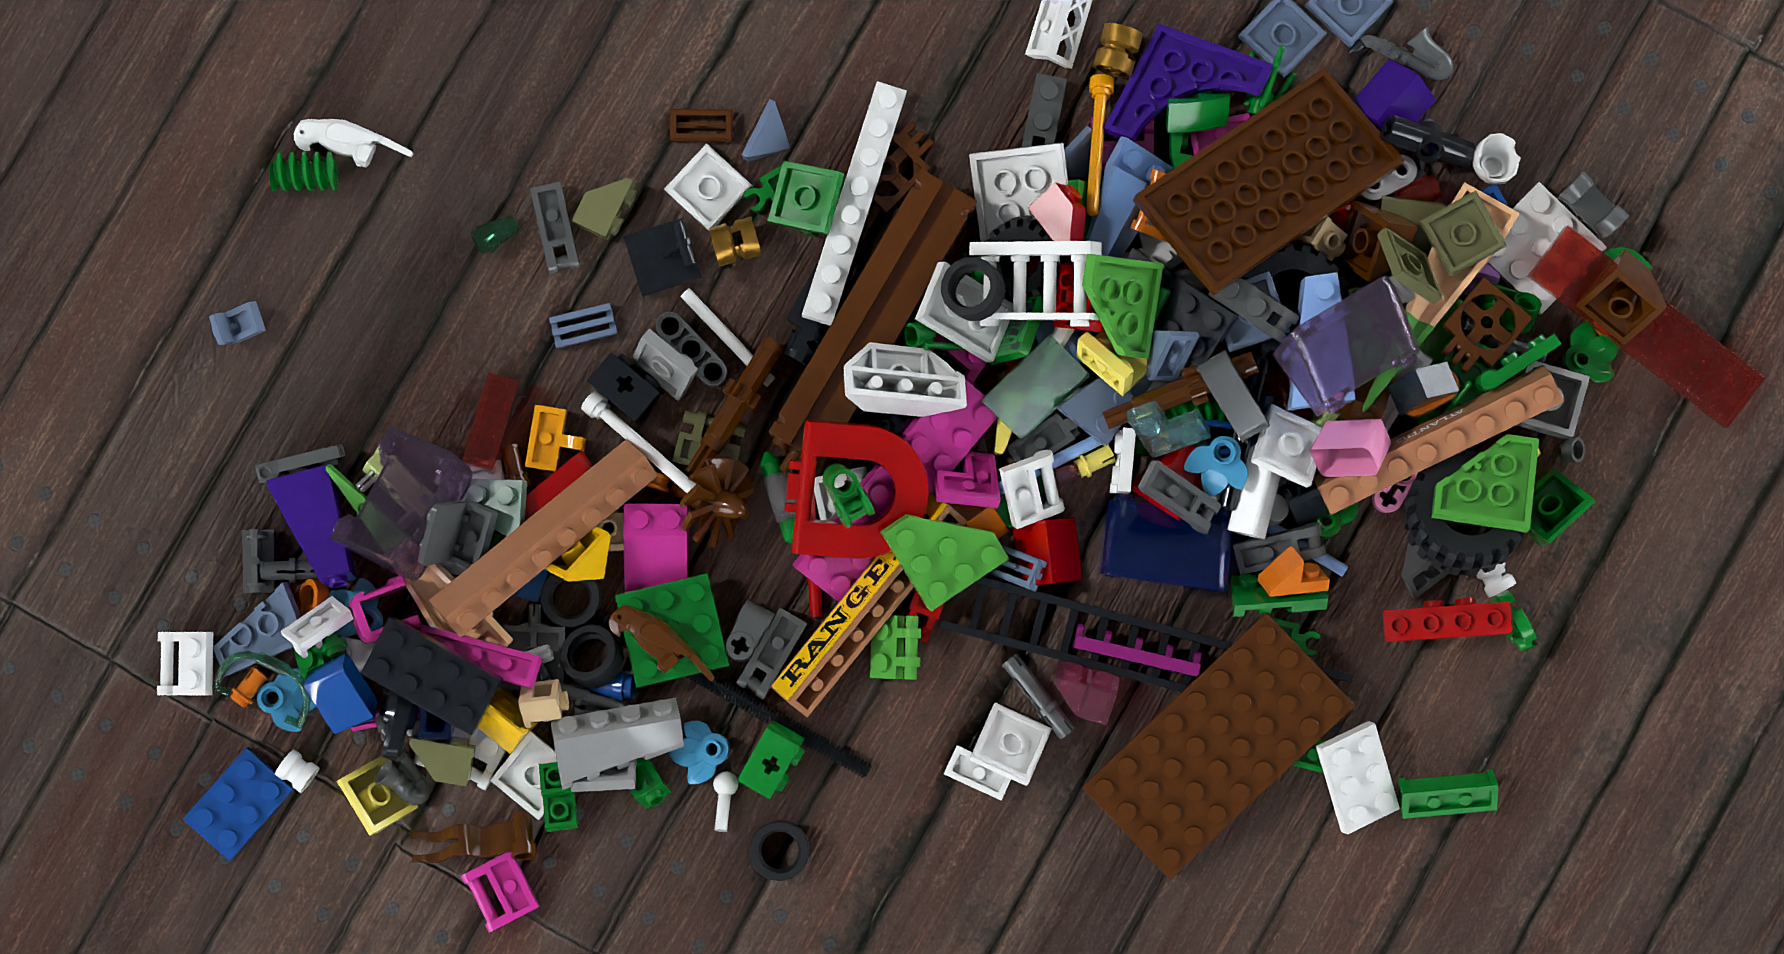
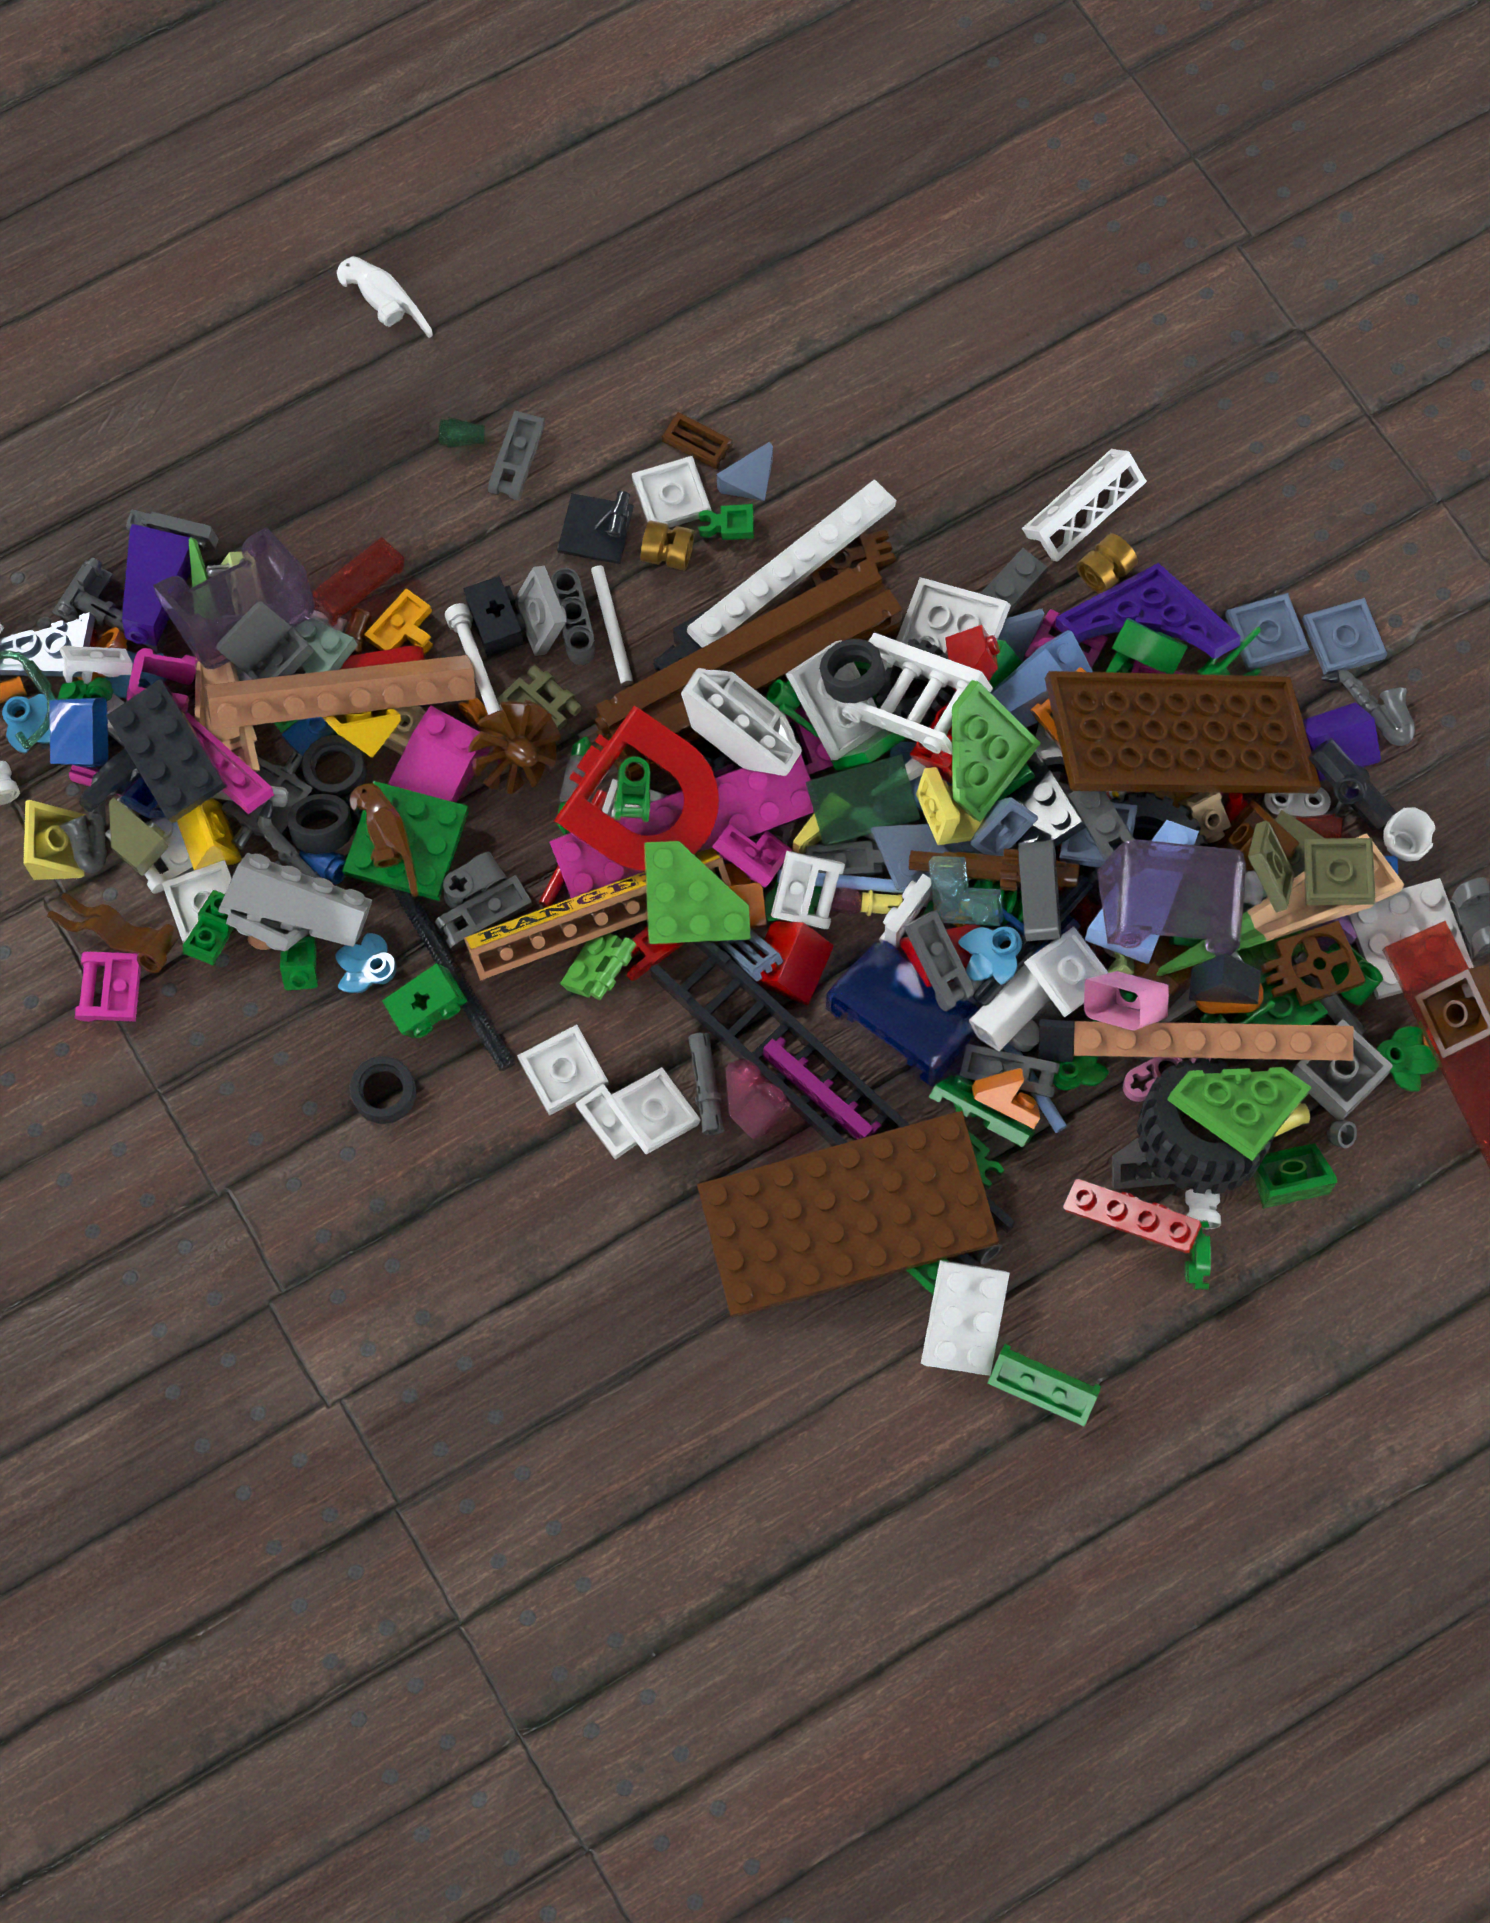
camera: 30 degrees right, 15 degrees down
(237, 324) = (192, 391): sand blue bracket -> none
(303, 172) = (328, 299): green piece -> none
(542, 702) = (249, 832): tan brick -> none
(557, 332) = (493, 538): sand blue tile -> none
(602, 207) = (569, 459): olive slope -> none
(725, 785) = (370, 1009): white bar -> none
(741, 397) = (592, 674): reddish brown piece -> none
(806, 198) = (750, 538): green bracket -> none
(914, 748) = (562, 1069): none -> white tile
(1101, 88) = (1073, 590): light orange piece -> none
(1515, 363) = (1328, 1012): green plate -> none

